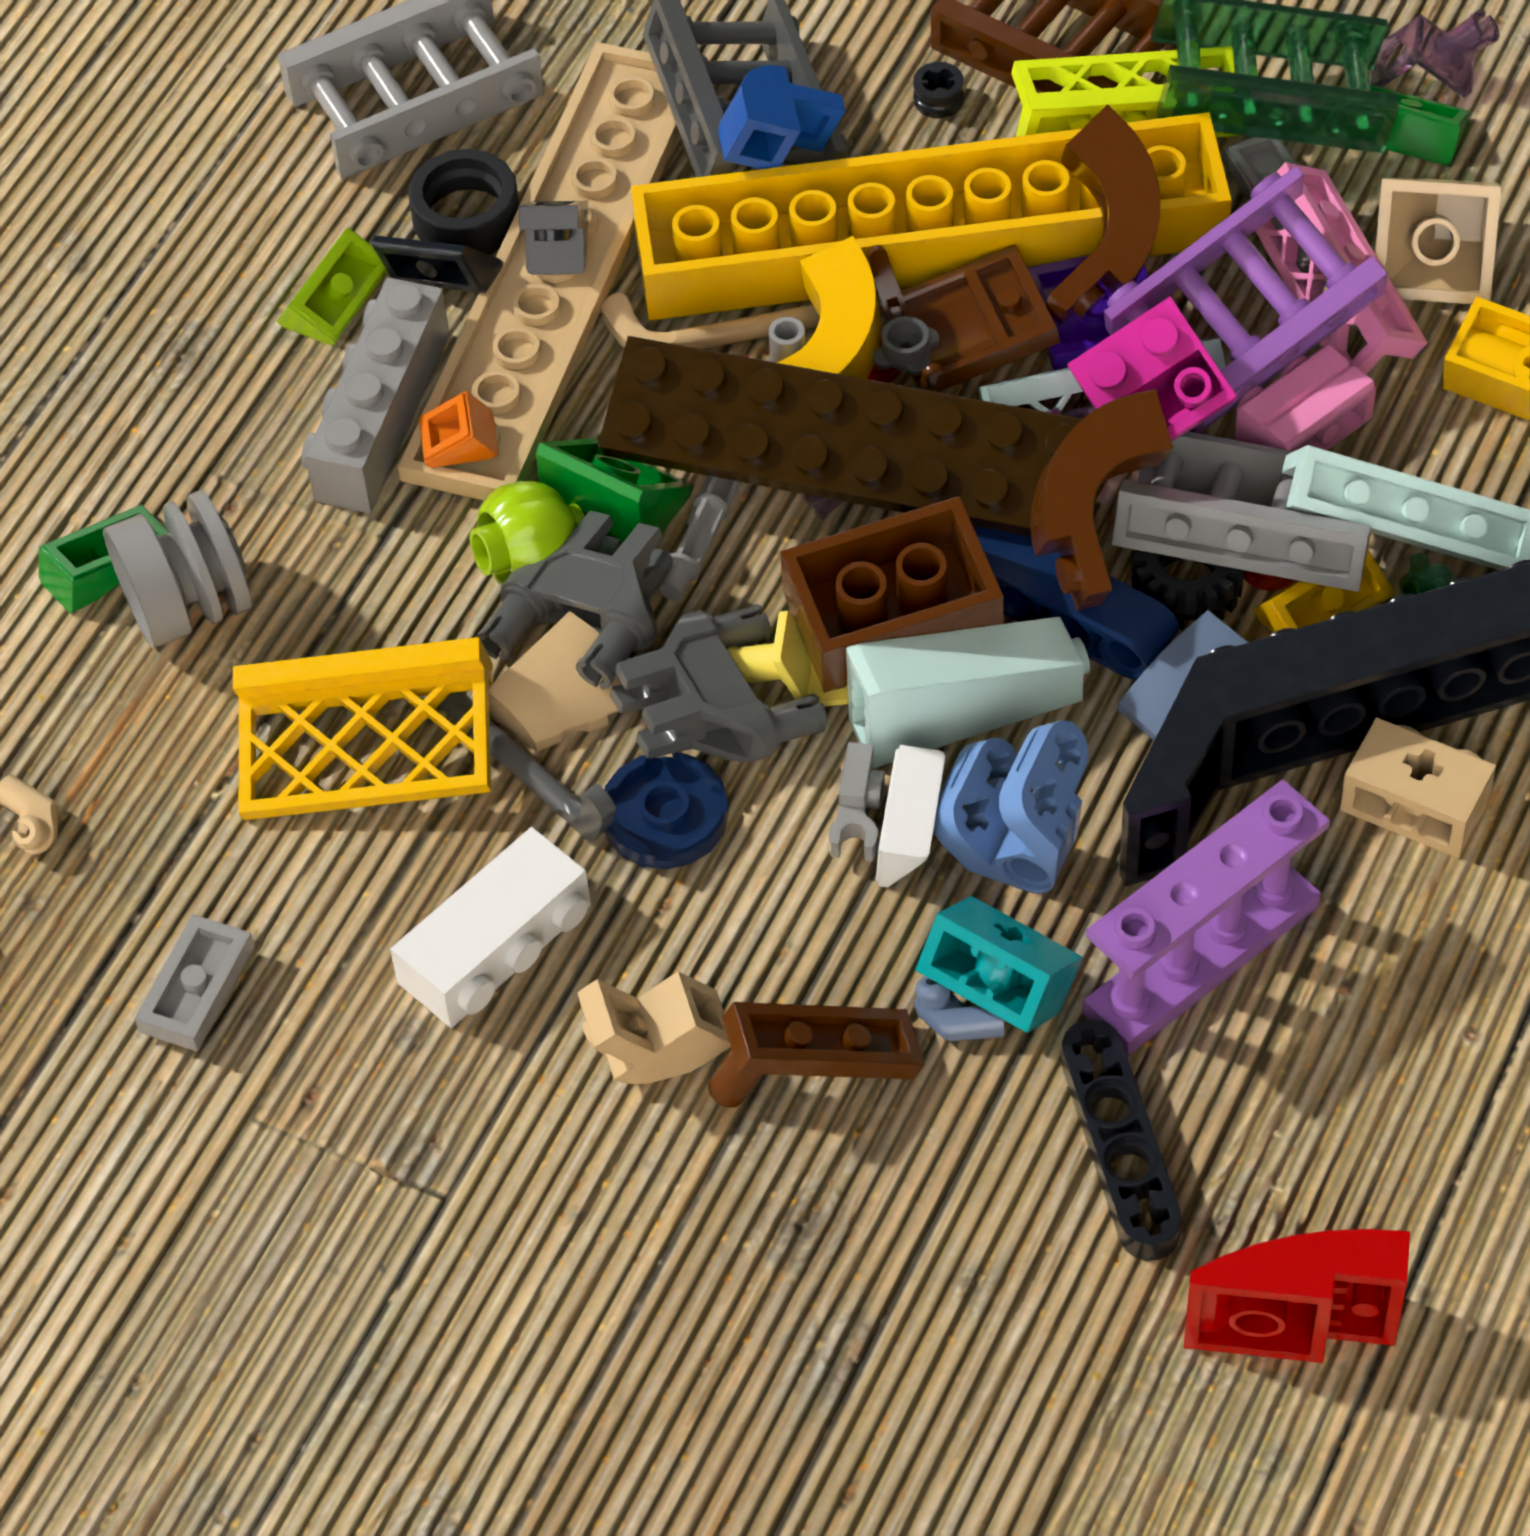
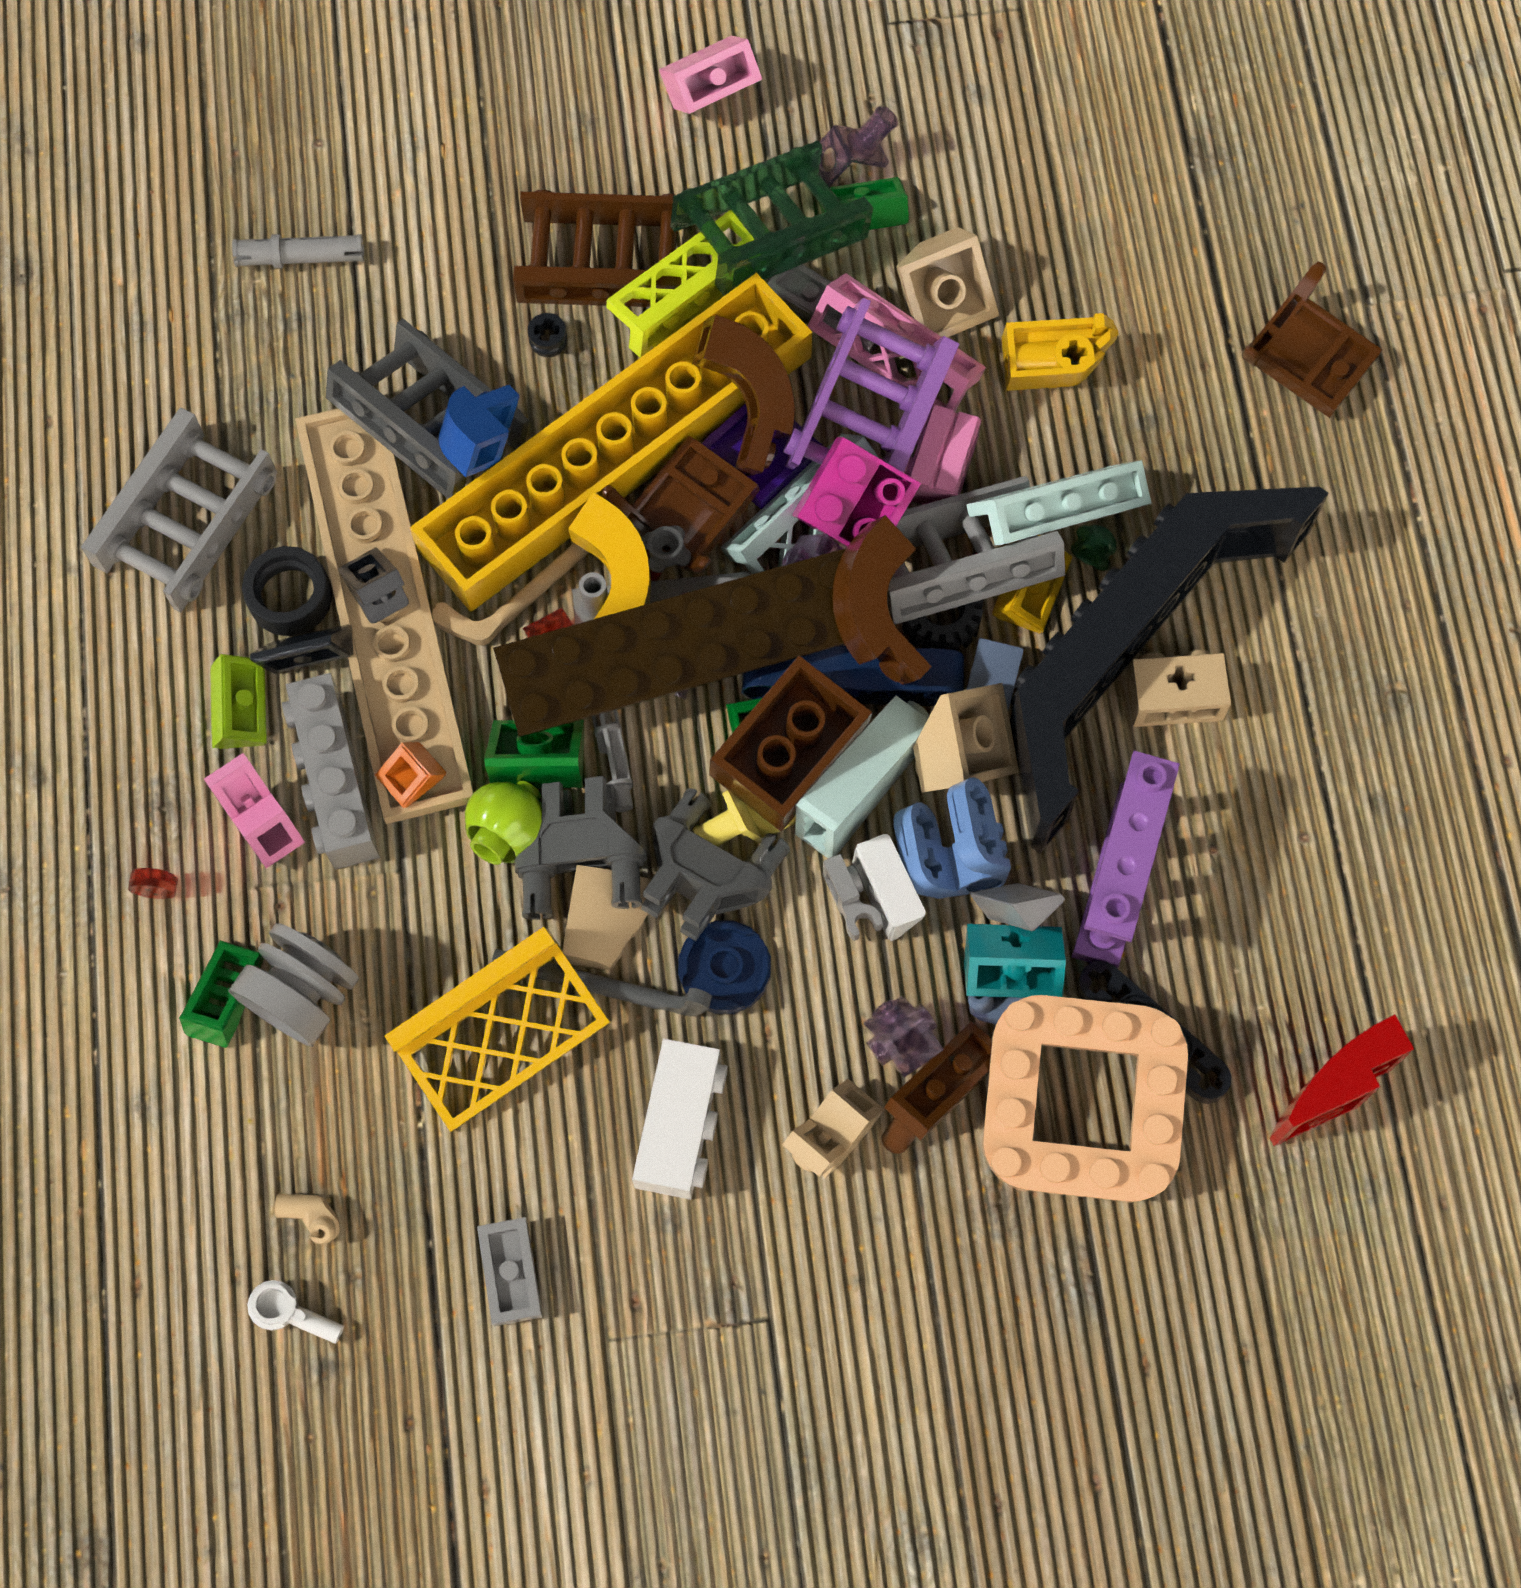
camera: 35 degrees left, 15 degrees up
(112, 411) = (153, 883): none -> clear red tile
(267, 386) = (254, 810): none -> bright pink brick
(782, 973) = (902, 1035): none -> brick
(1039, 900) = (1018, 904): none -> light grey slope
(1050, 1208) = (1156, 1110): none -> light nougat plate
(1114, 692) = (966, 739): none -> tan slope

